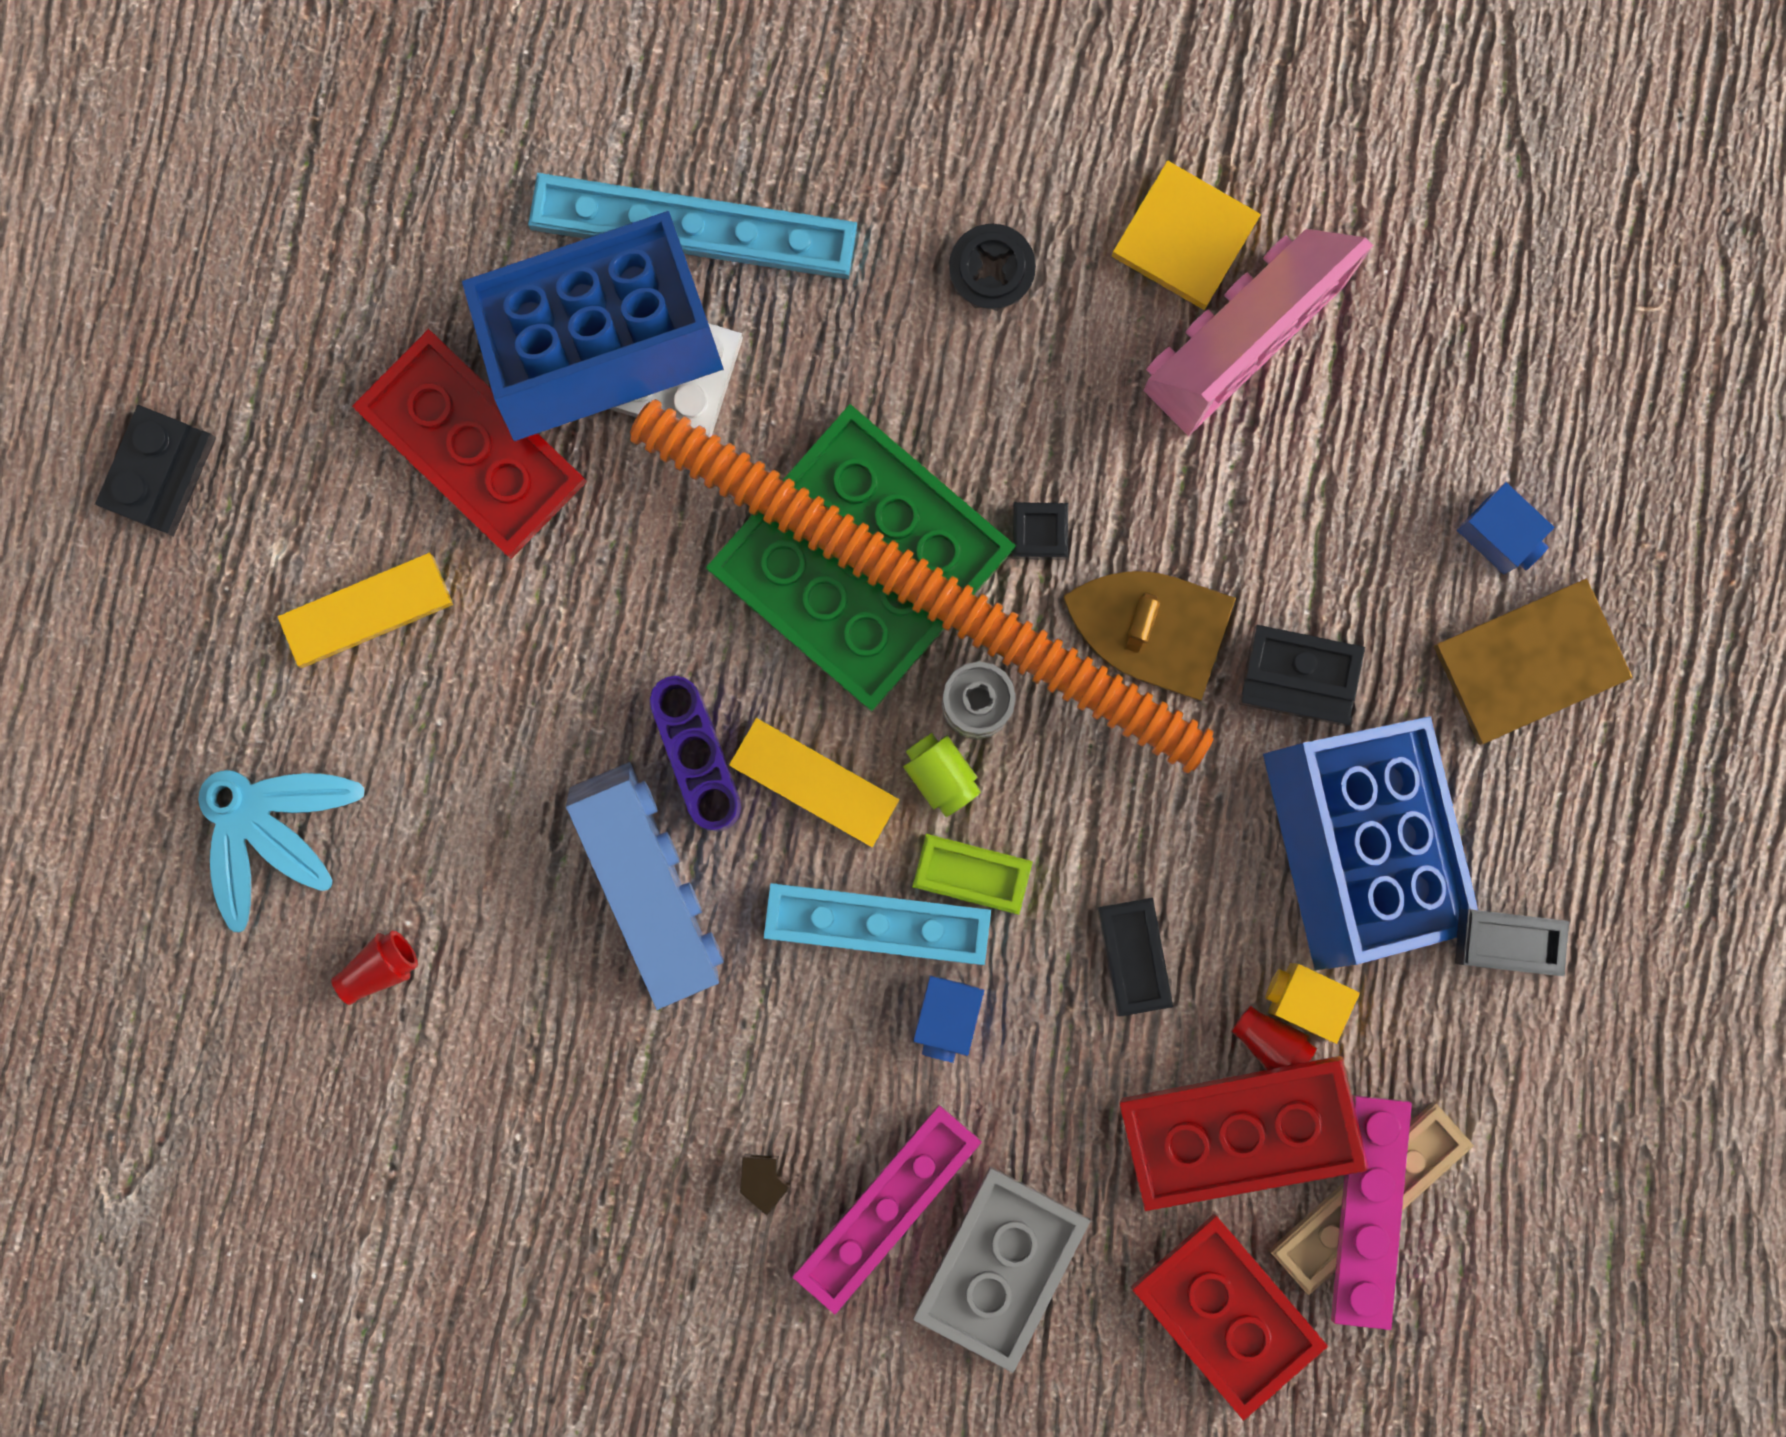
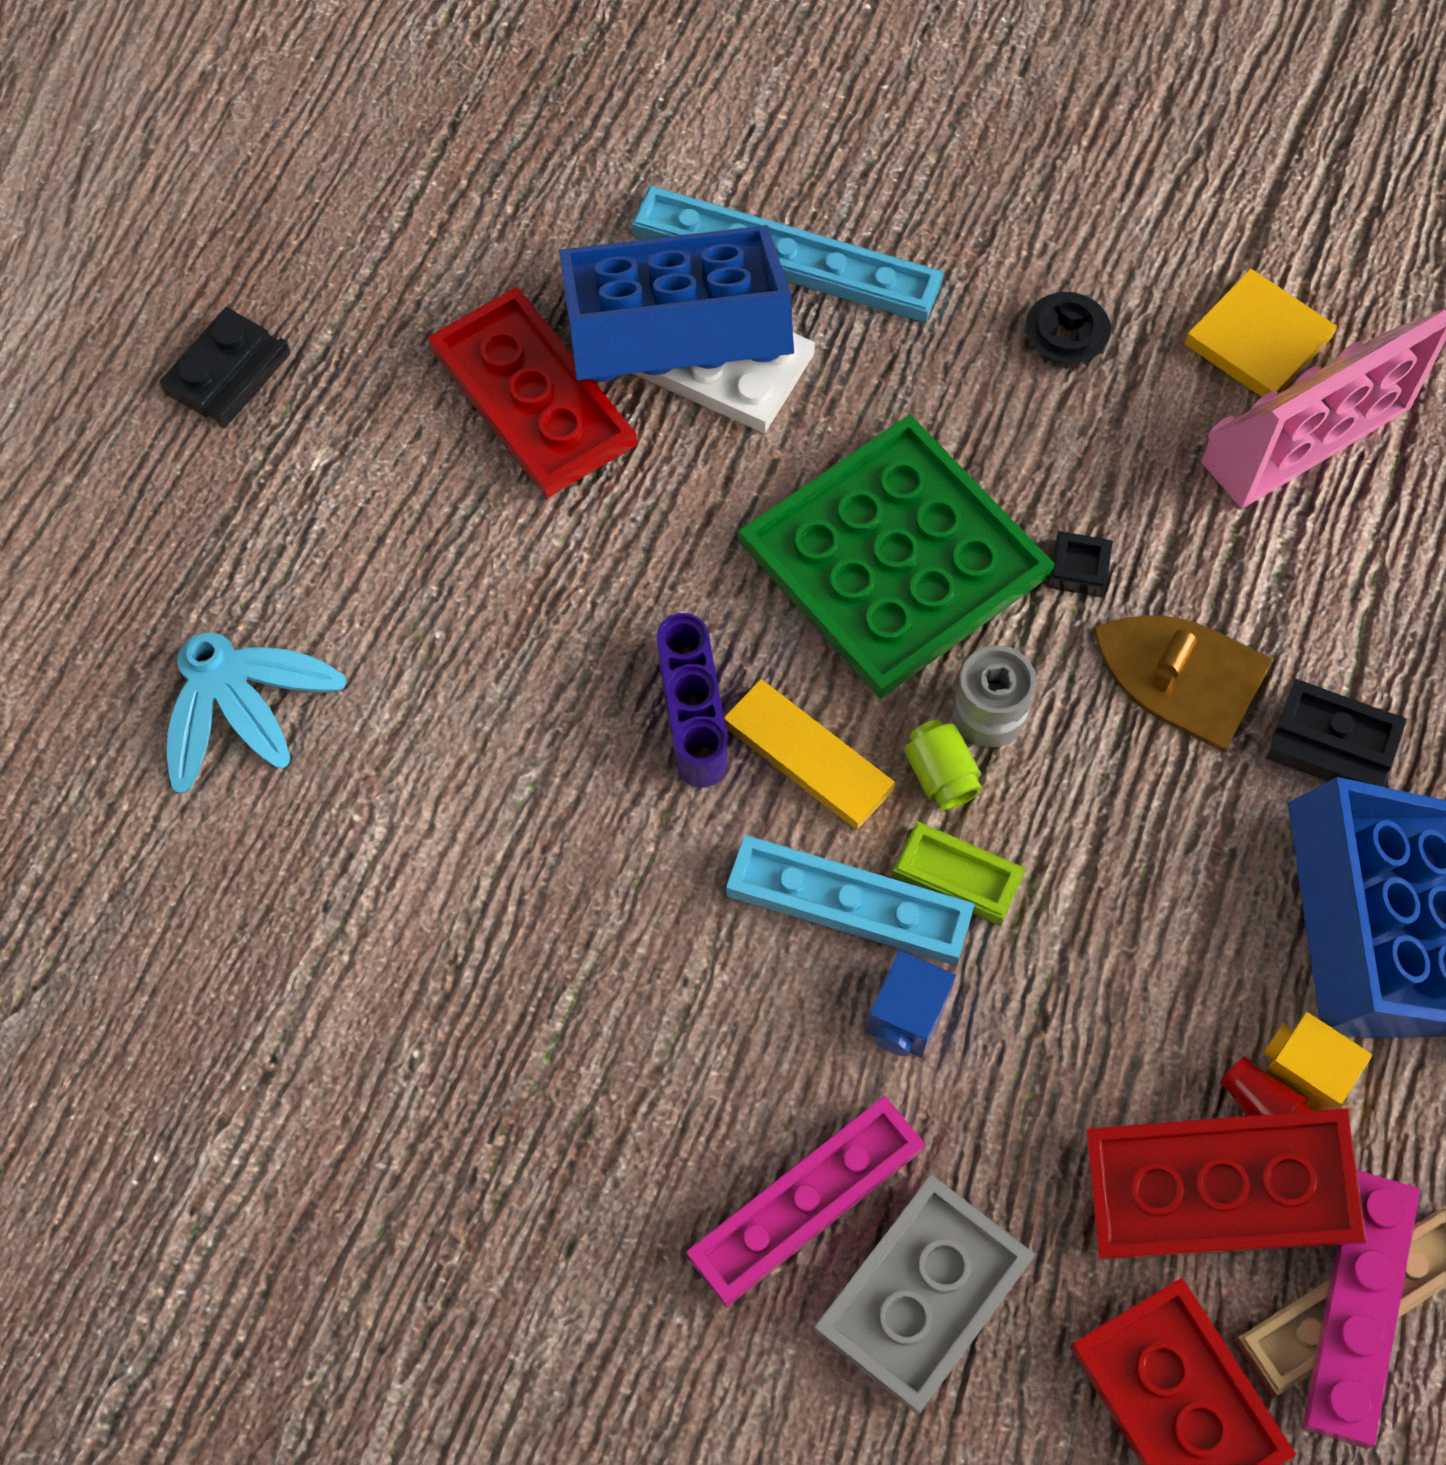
camera: 10 degrees right, 20 degrees down
(365, 610) = (391, 518): yellow tile -> none
(376, 967) = (312, 846): red cone -> none
(643, 885) = (612, 808): medium blue wedge -> none
(762, 1182) = (672, 1145): dark brown piece -> none
(920, 585) = (963, 581): orange piece -> none
(1135, 957) = (1122, 989): black tile -> none

